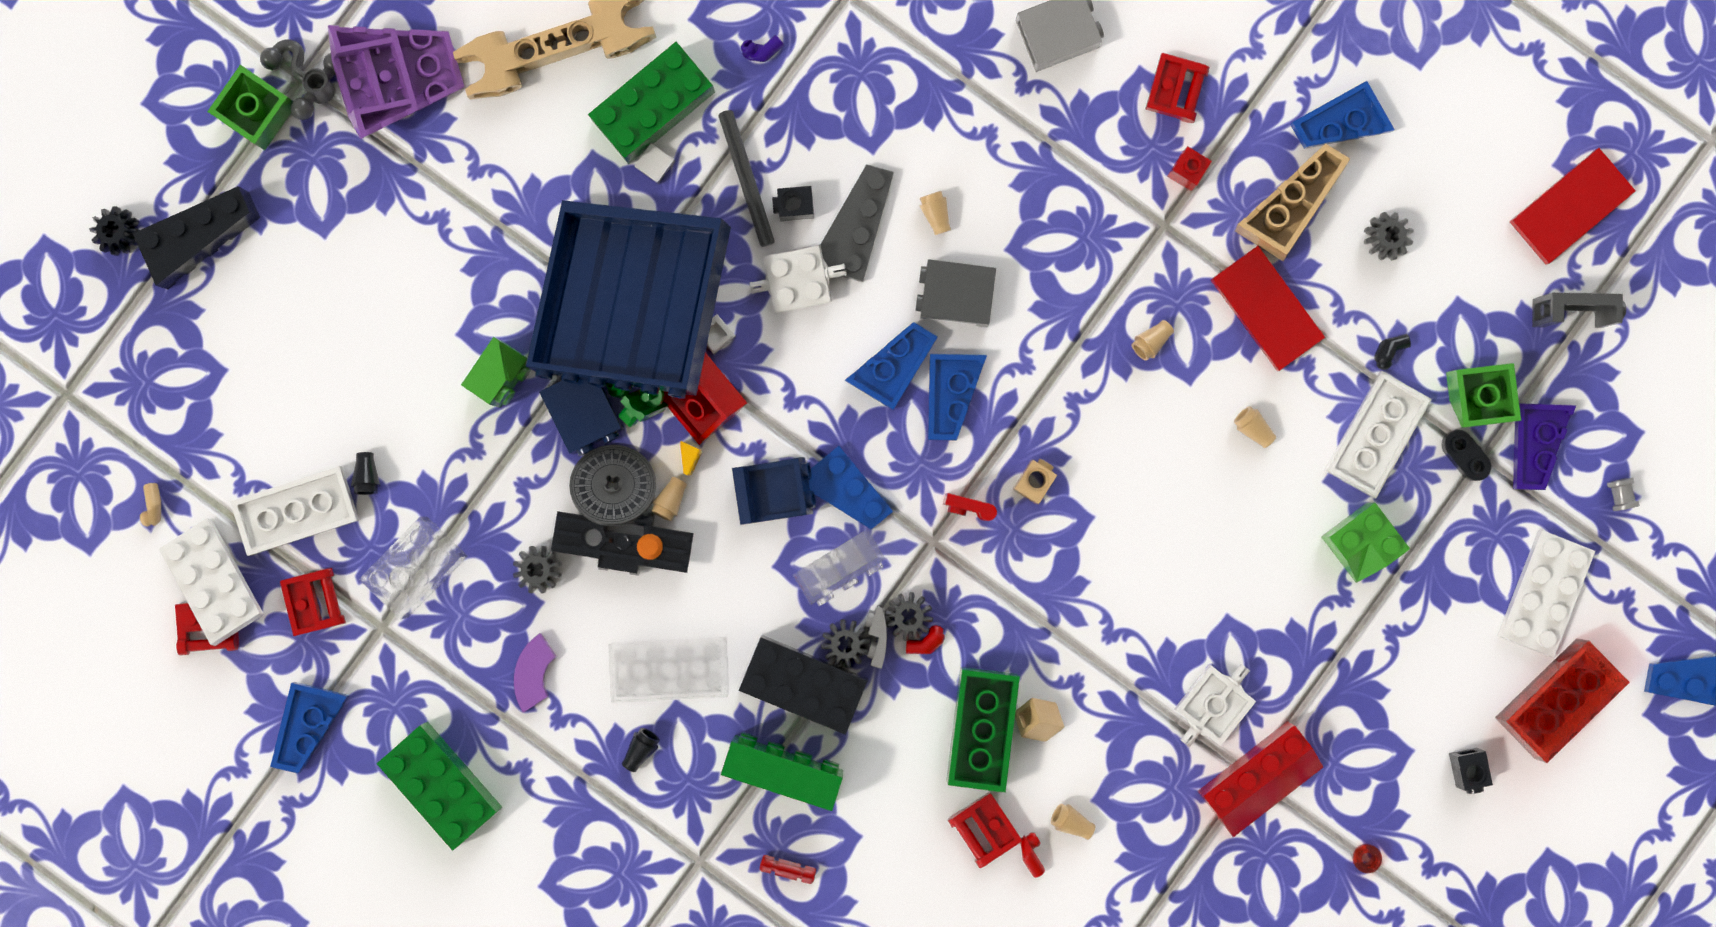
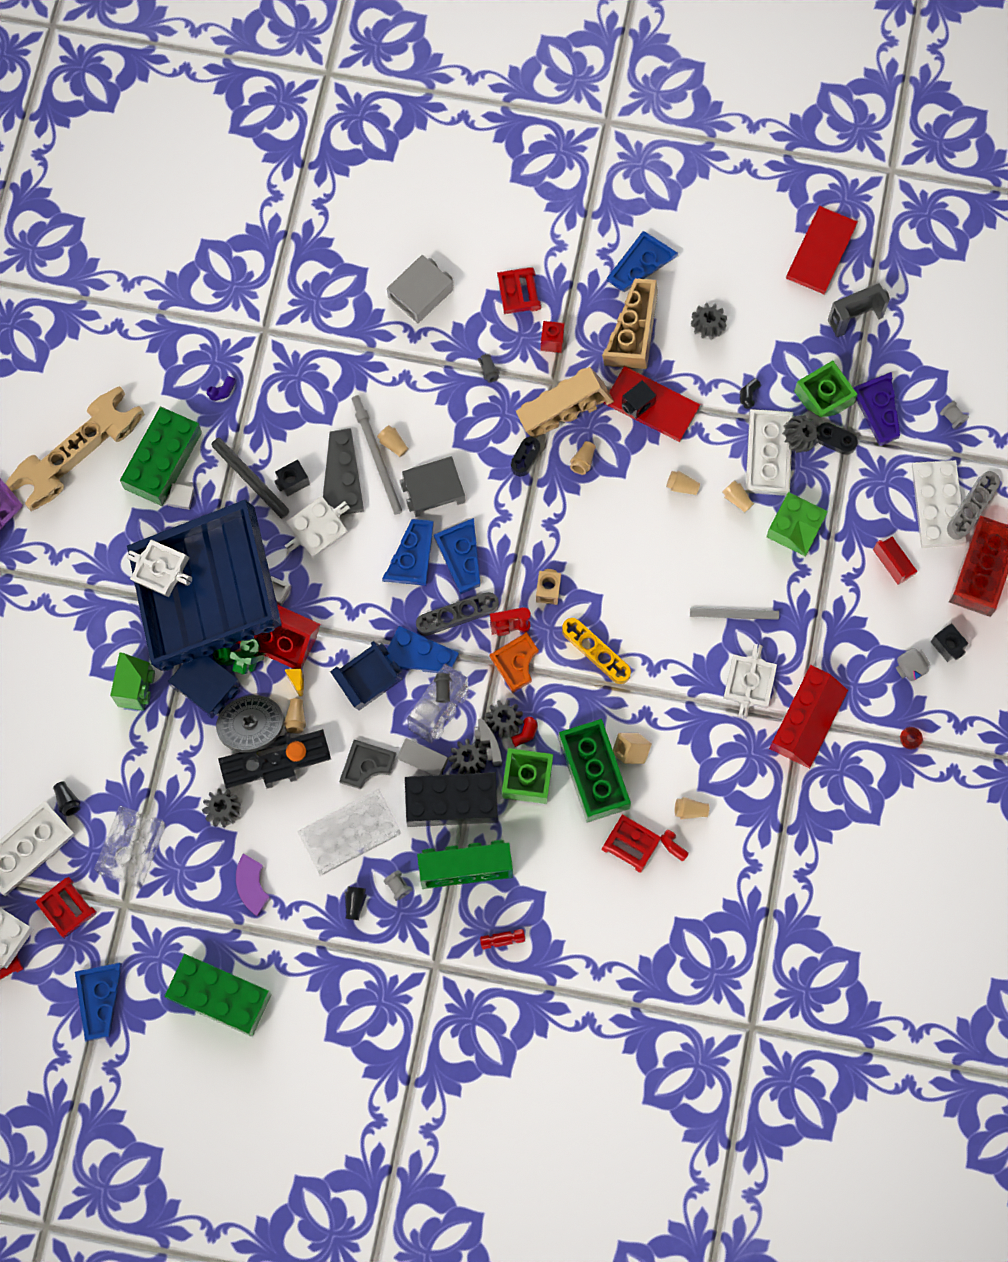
camera: 25 degrees left, 15 degrees down
(585, 252) = (159, 568): none -> white plate
(697, 753) = (397, 885): none -> light grey bush
(726, 590) = (366, 762): none -> dark grey tile
(793, 619) = (422, 757): none -> light grey slope
(850, 561) = (443, 687): none -> dark grey pin
(903, 700) = (527, 776): none -> bright green slope
(913, 466) = (458, 617): none -> dark grey beam
(914, 163) = (363, 418): none -> light grey bar
(953, 550) = (514, 661): none -> orange tile
(1050, 584) = (593, 653): none -> yellow beam
(1080, 299) = (529, 458): none -> black beam
(1093, 172) = (491, 374): none -> dark grey pin
(1161, 262) = (564, 402): none -> tan wedge
(1237, 613) = (734, 613): none -> light grey bar
(1253, 300) = (638, 399): none -> black brick
(1312, 473) = (737, 495): none -> tan cone
(1414, 775) = (912, 664): none -> light grey head
(1427, 433) = (800, 433): none -> dark grey gear
(1458, 638) = (894, 560): none -> red panel
(1585, 613) = (972, 504): none -> light grey beam

